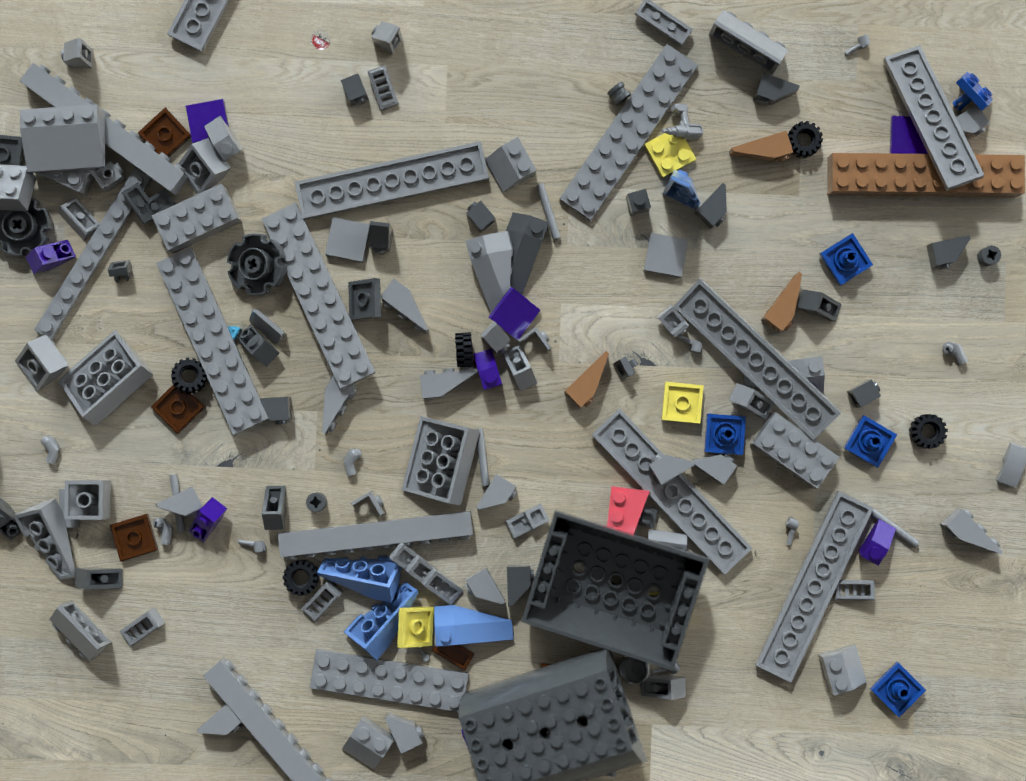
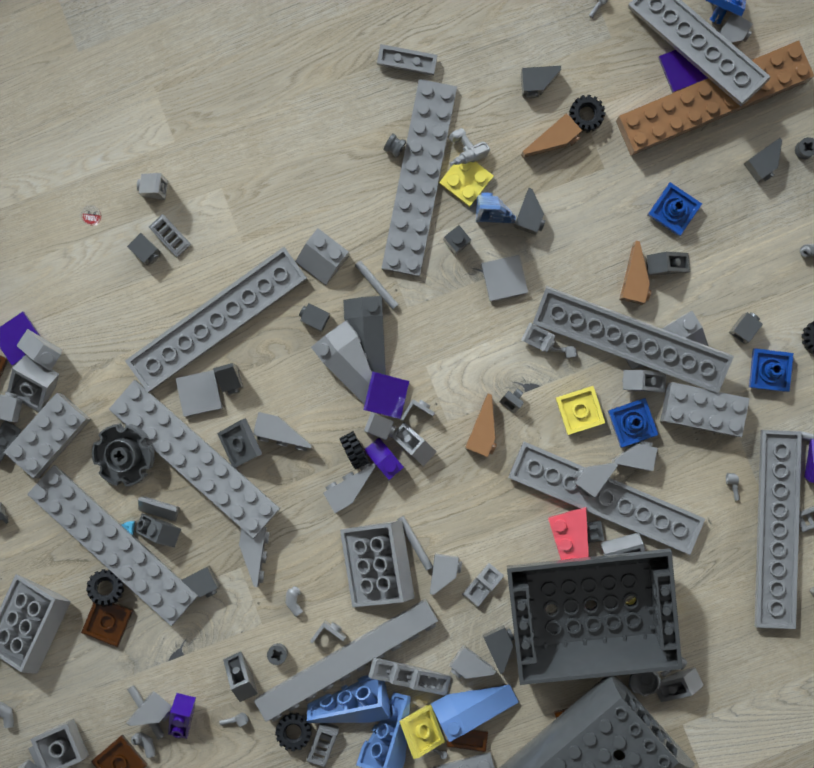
camera: 25 degrees left, 0 degrees up
(747, 41) = (495, 44): light grey slope -> none

